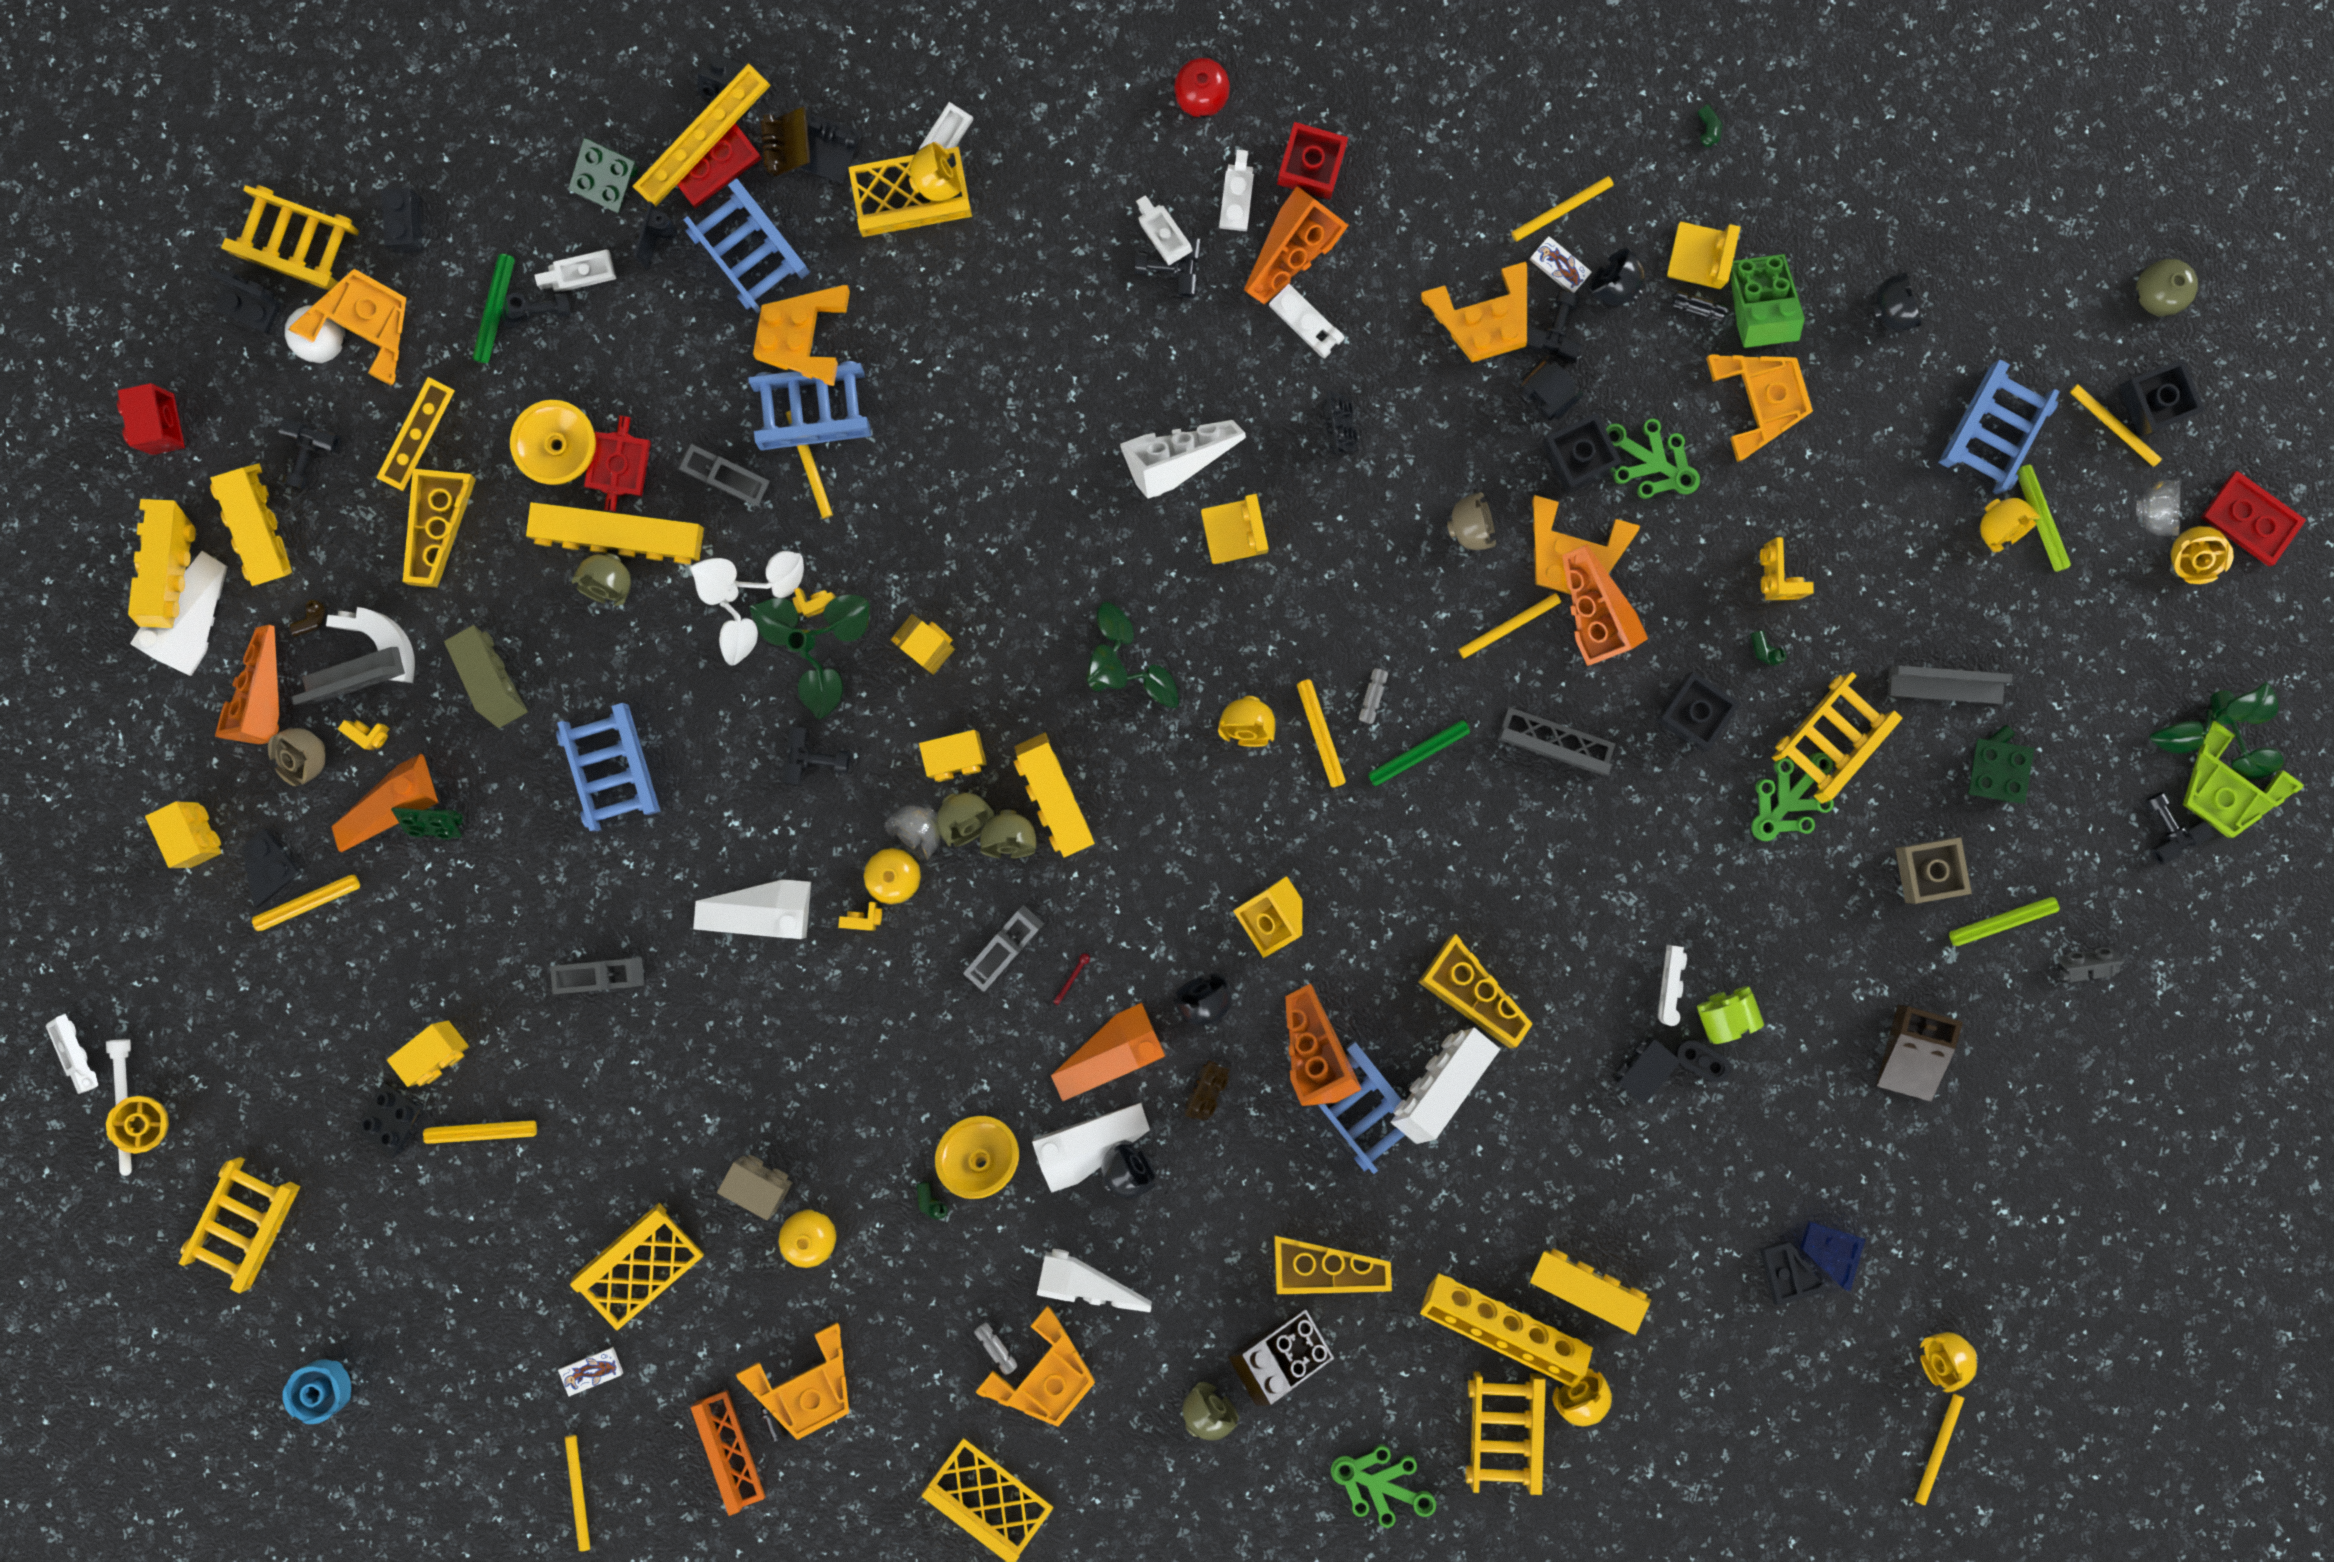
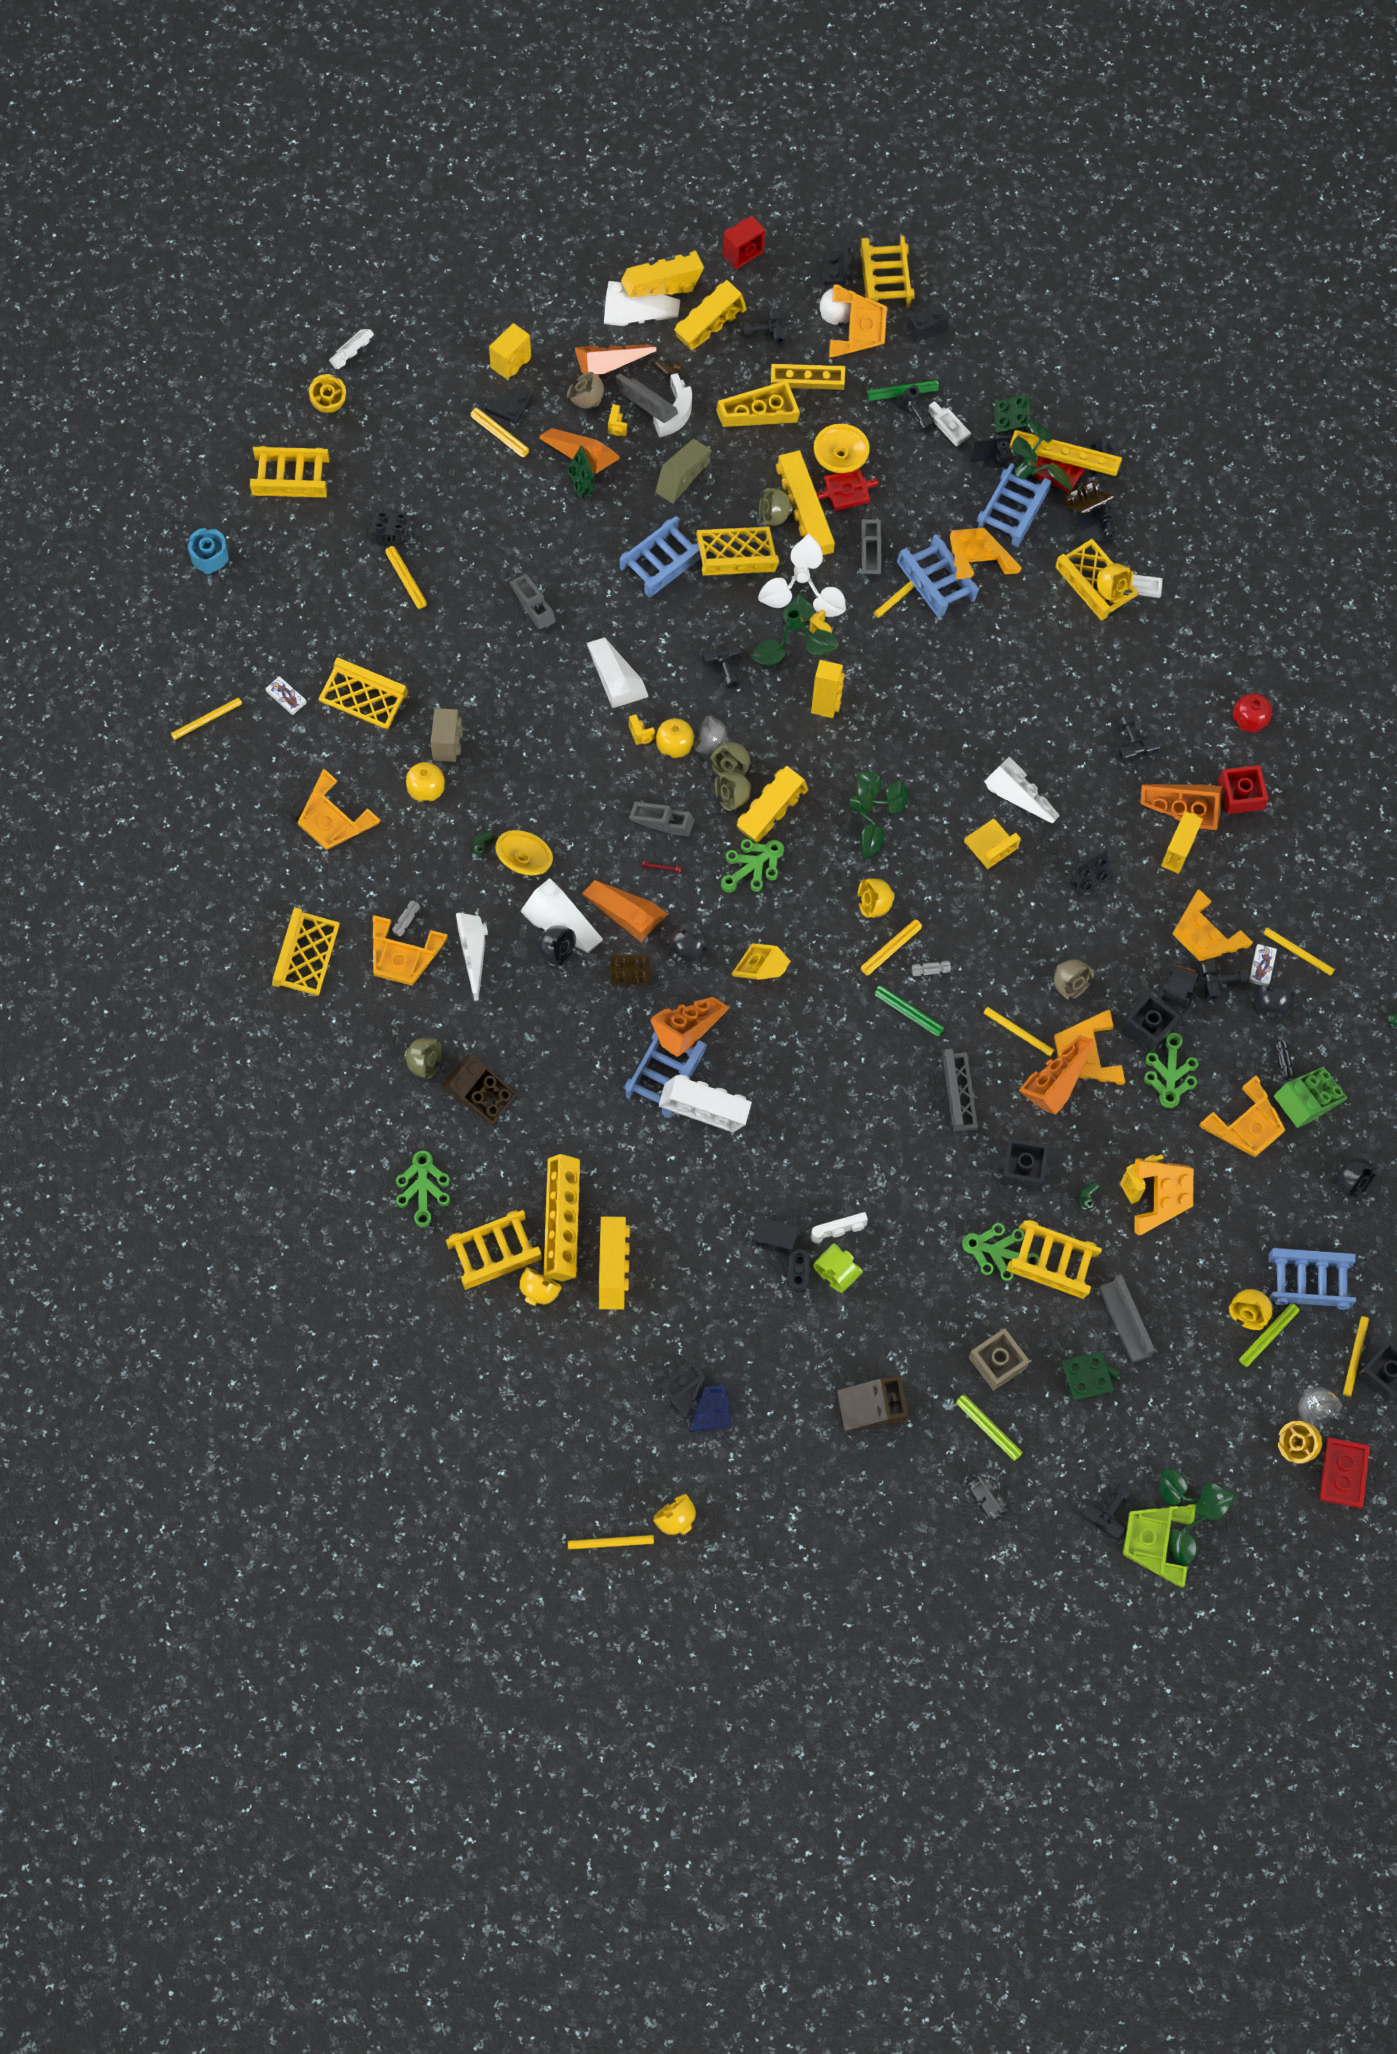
camera: 60 degrees right, 20 degrees down
(118, 1051) = (364, 371): white piece -> none
(428, 1053) = (442, 526): yellow brick -> none
(671, 669) = (739, 563): none -> yellow fence
(693, 199) = (1028, 465): none -> dark green plant
(717, 1455) = (265, 785): orange fence -> none
(953, 755) = (768, 736): yellow brick -> none
(1123, 854) = (753, 863): none -> bright green plant
(1163, 231) = (1151, 723): white hinge -> none
(1237, 194) = (1199, 759): white hinge -> none
(1305, 320) = (1144, 830): white plate -> none
(1320, 1269) = (549, 1089): yellow wedge -> none
(1352, 281) = (1182, 842): none -> yellow window
(1468, 988) = (773, 1099): yellow wedge -> none
(1703, 254) = (1318, 1046): yellow bracket -> none
(1819, 549) = (1171, 1192): none -> light orange wing

